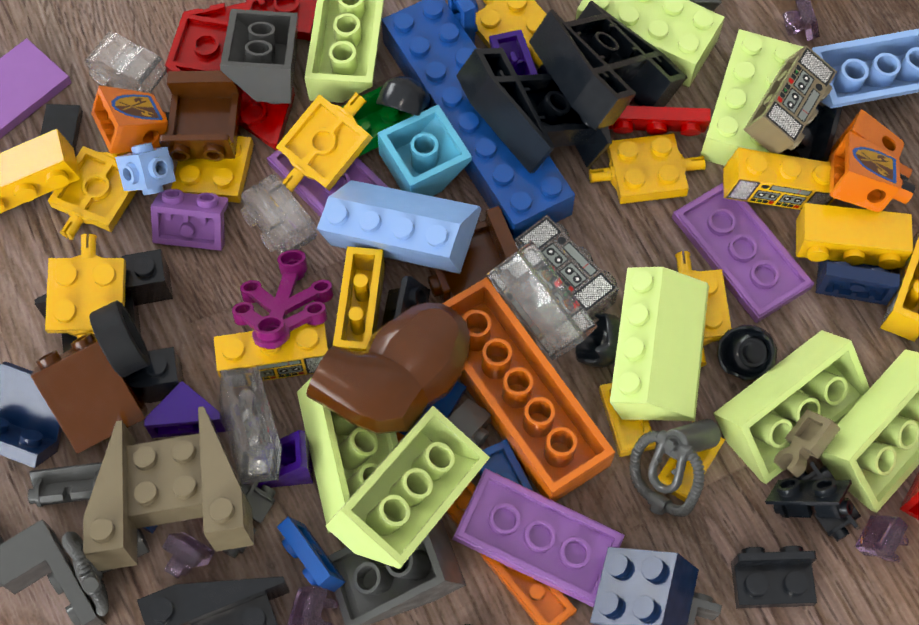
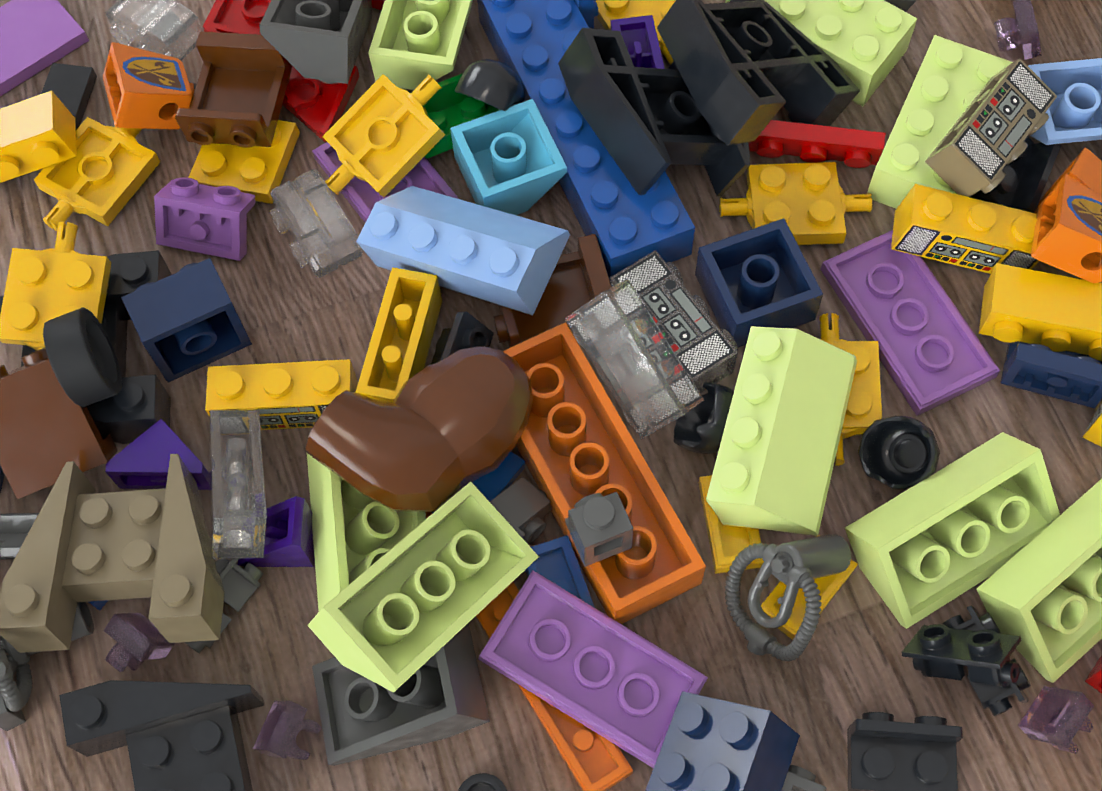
camera: 10 degrees right, 0 degrees up
(146, 169) = (156, 149): light blue brick -> none
(190, 301) = (186, 320): none -> dark blue brick
(274, 329) = (282, 364): magenta plant -> none
(302, 545) = (287, 648): blue plate -> none
(534, 430) = (599, 527): none -> dark grey brick
(627, 232) = (758, 281): none -> dark blue brick
(807, 438) = (966, 574): dark tan plate -> none

